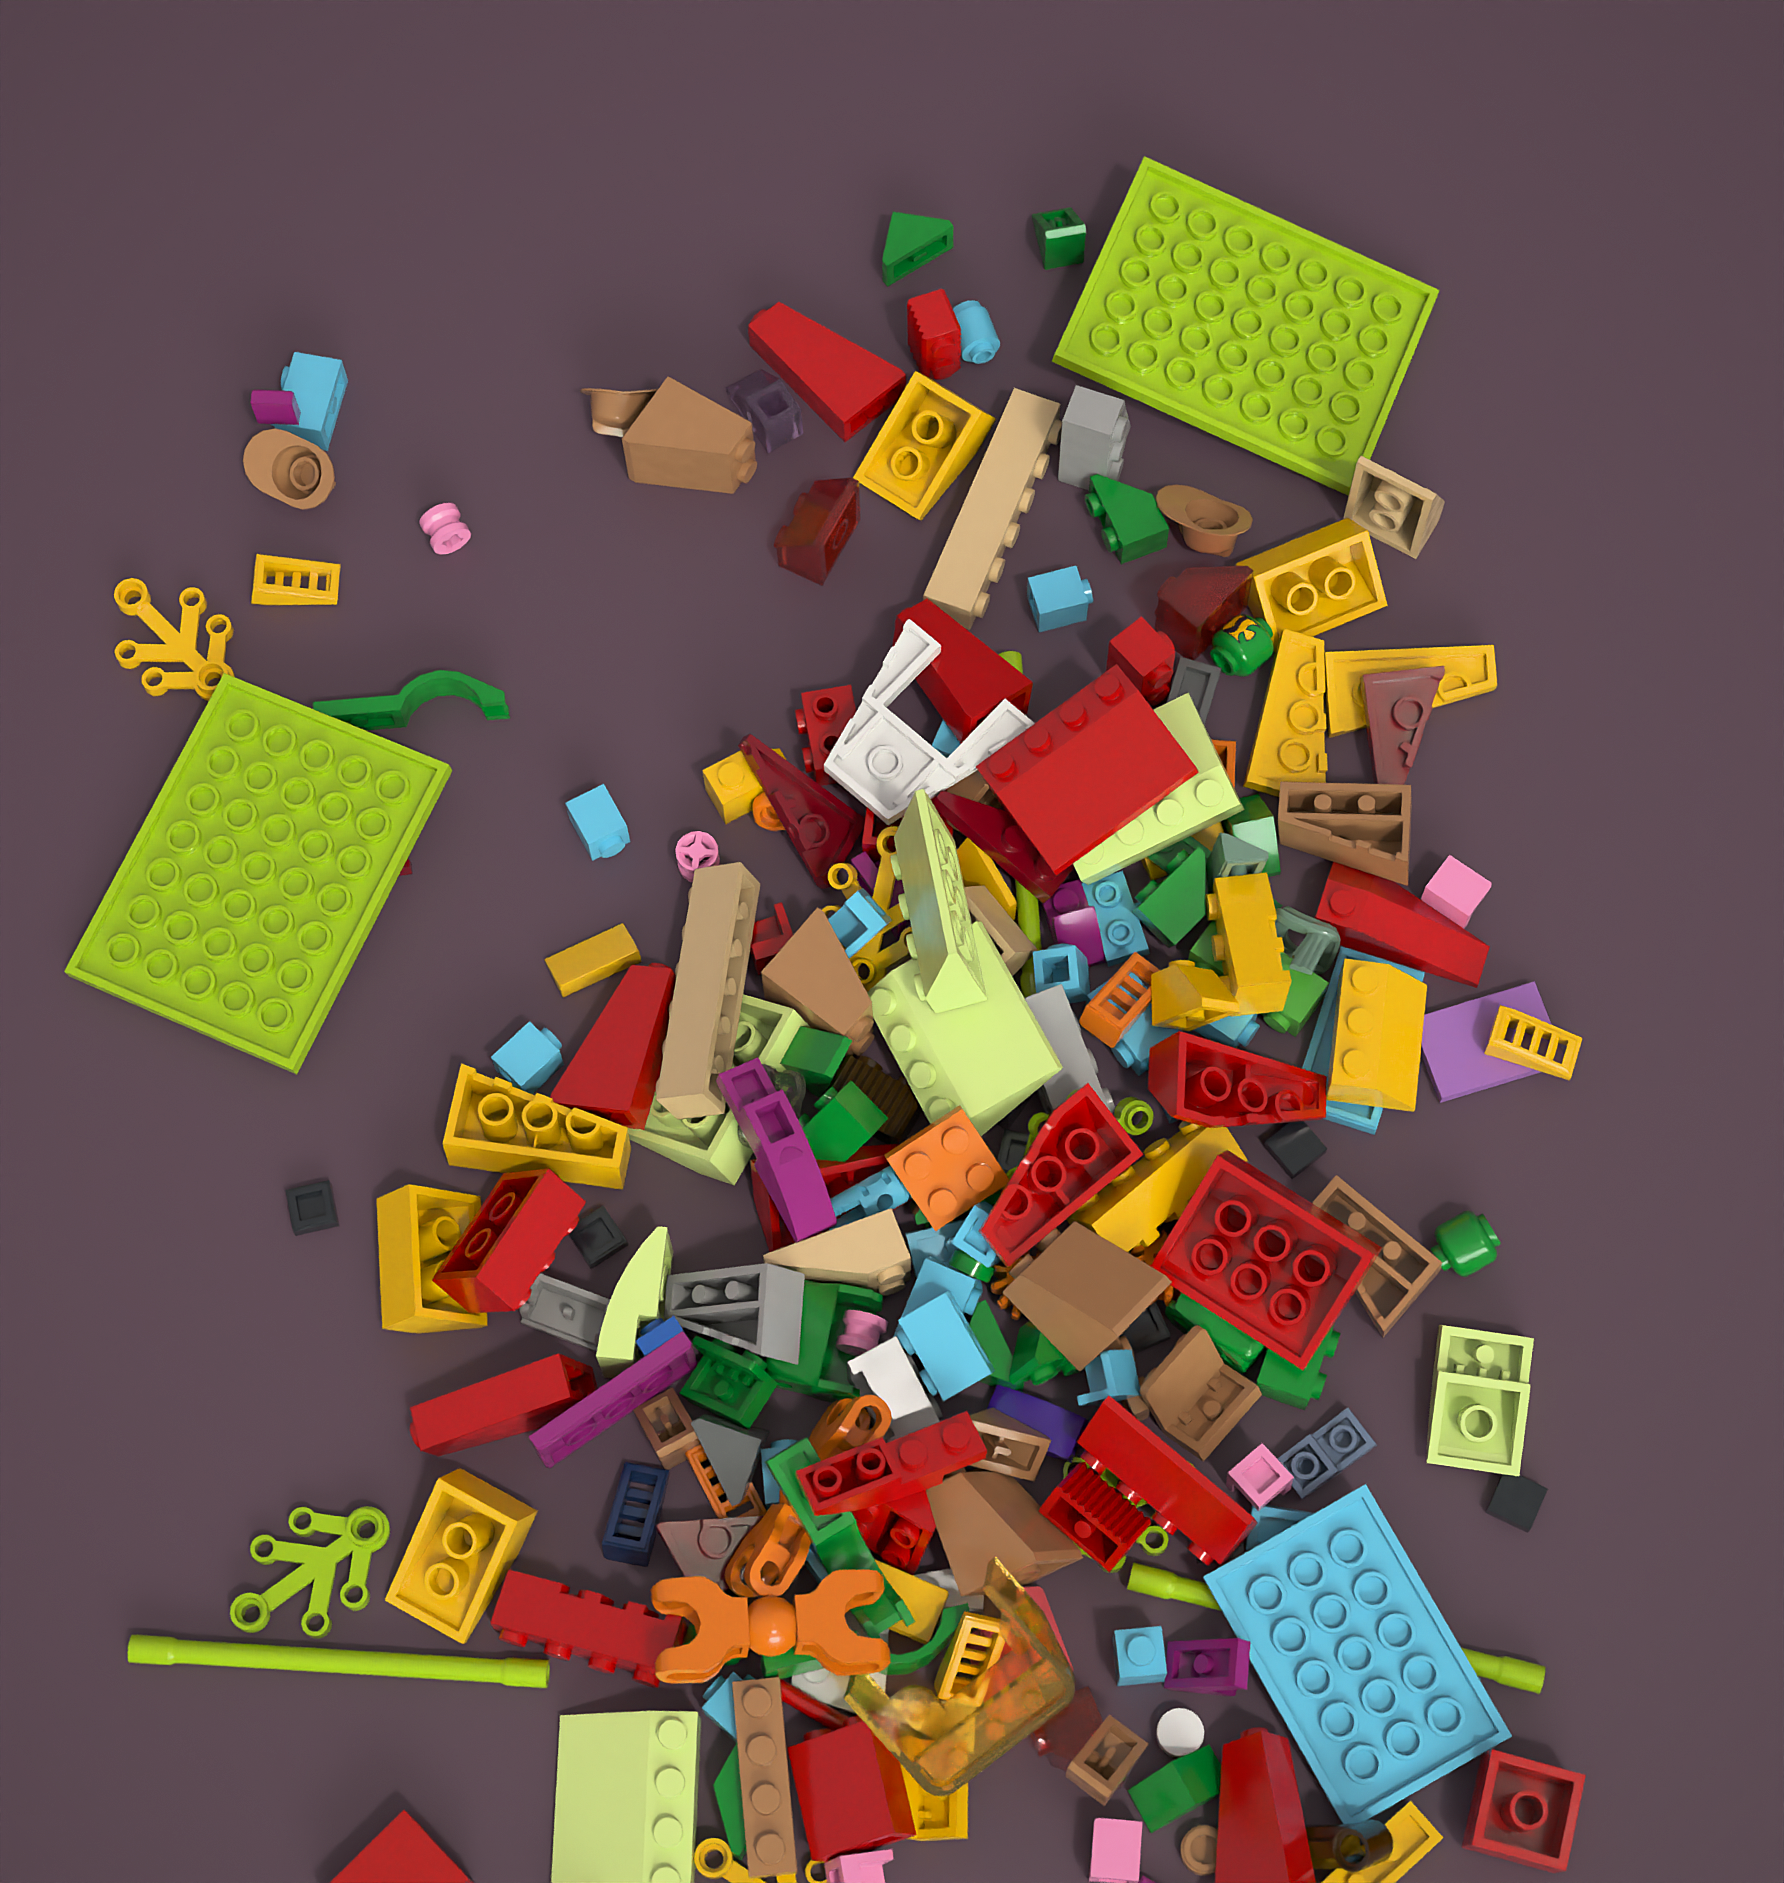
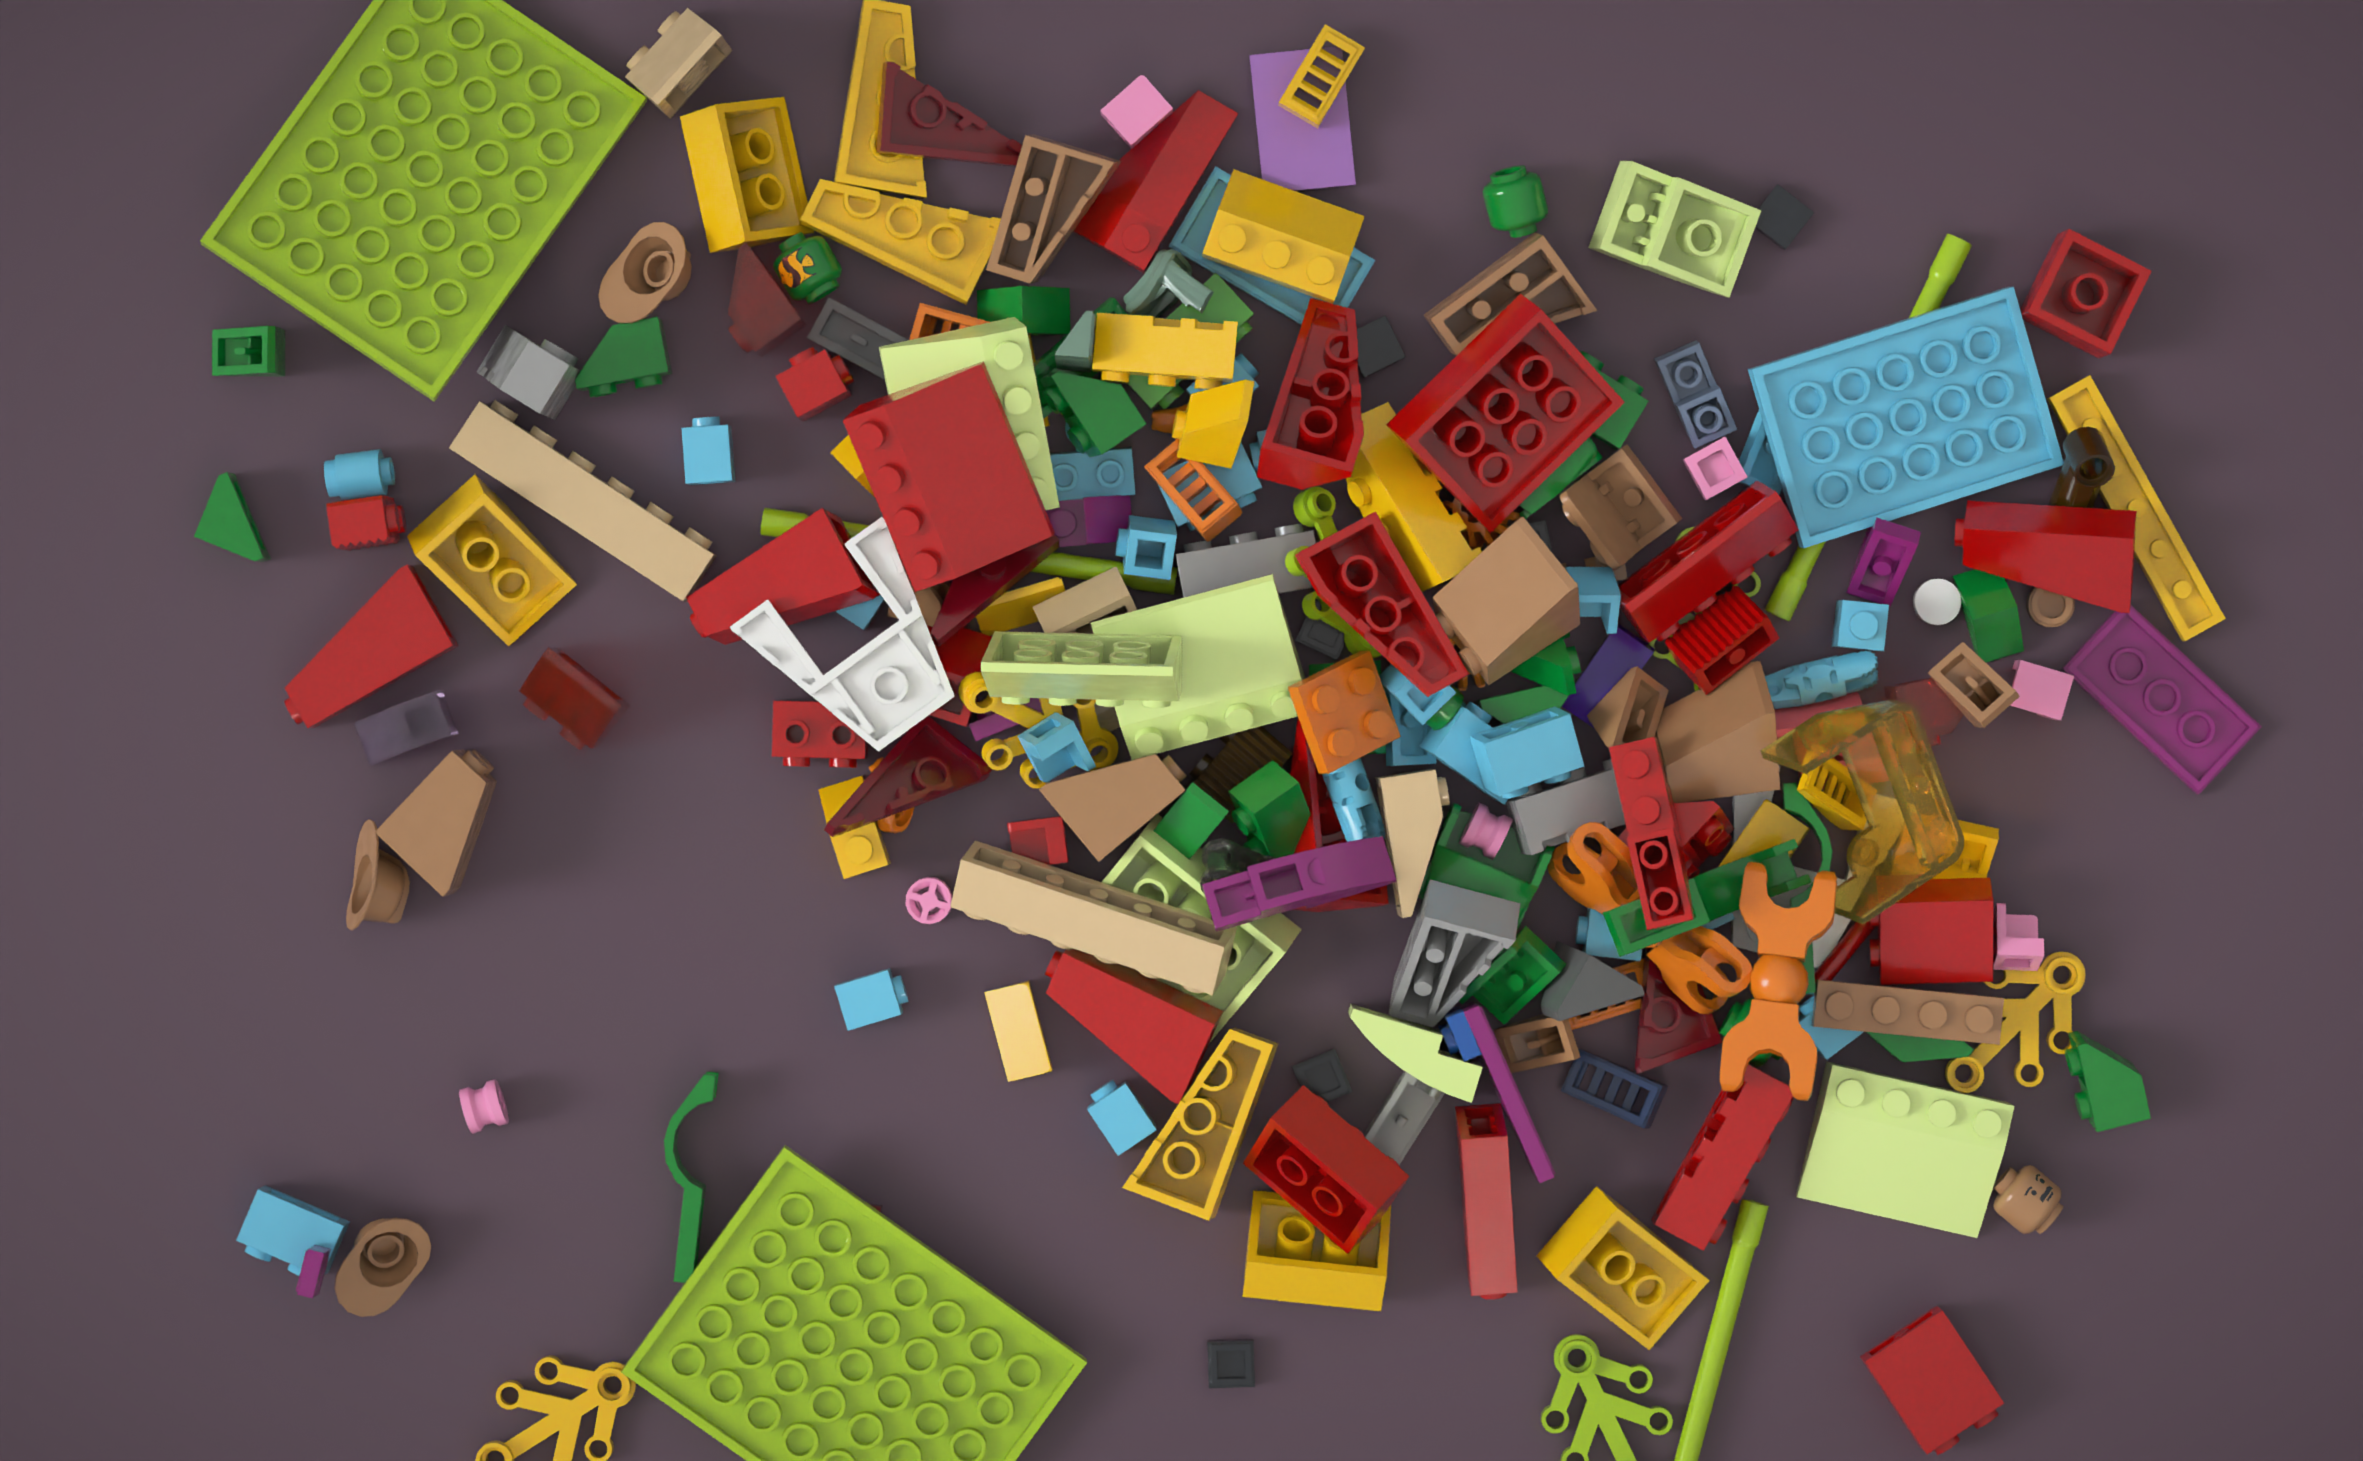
camera: 80 degrees left, 20 degrees up
(285, 595) = (527, 1283): yellow slope -> none
(1076, 1629) = (1822, 679): none -> medium azure hinge

